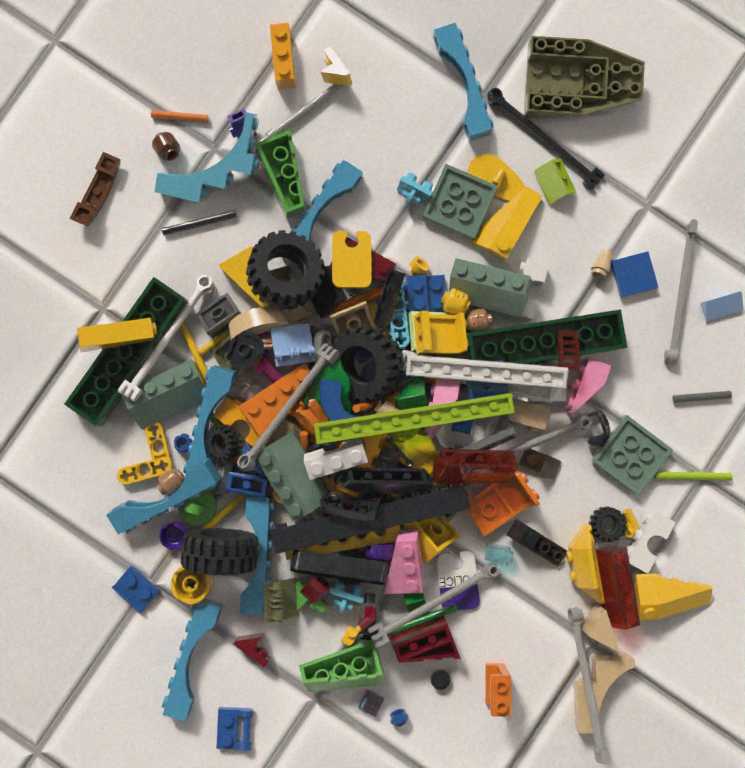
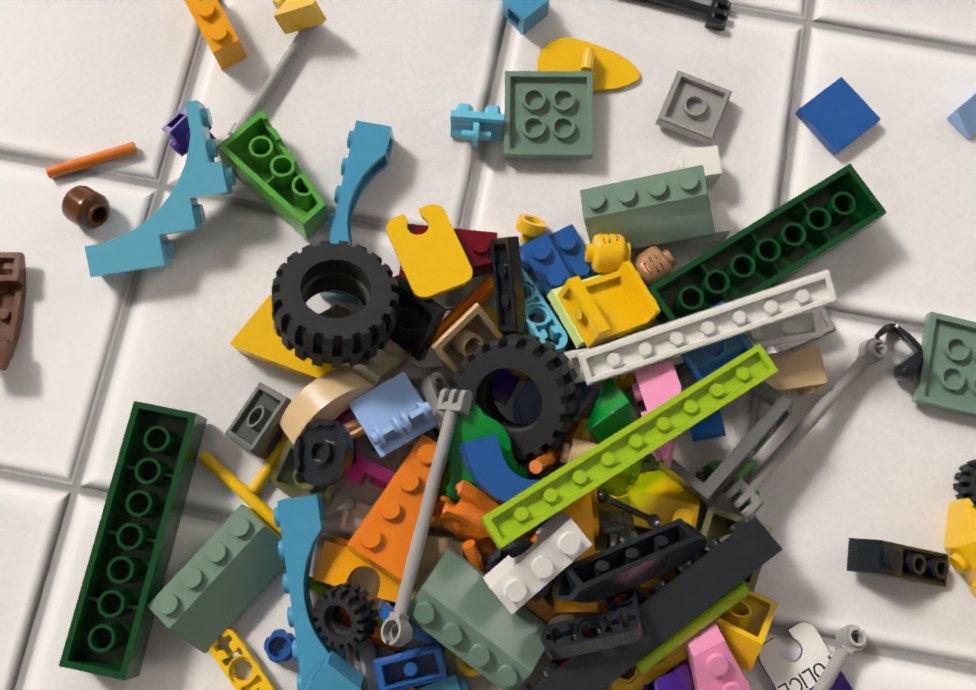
camera: 25 degrees left, 10 degrees down
(115, 334) = (101, 515): yellow slope -> none
(133, 386) = (164, 593): white hinge -> none
(199, 222) = (177, 297): black bar -> none
(405, 527) = (693, 627): none -> lime bar
(474, 466) = (755, 481): clear red brick -> none
(498, 554) = (851, 607): clear light blue brick -> none
(501, 502) = (818, 518): orange bracket -> none
(504, 228) = (629, 125): yellow wedge -> none
(540, 462) = (840, 437): dark brown slope -> none
(549, 233) = (693, 107): none -> light grey plate
(554, 180) = (666, 37): lime panel -> none
(576, 355) = (797, 255): clear red slope -> none
(591, 378) = (855, 282): bright pink slope -> none
(602, 265) = (789, 123): tan cone -> none
(672, 354) = (948, 201): light grey hinge -> none

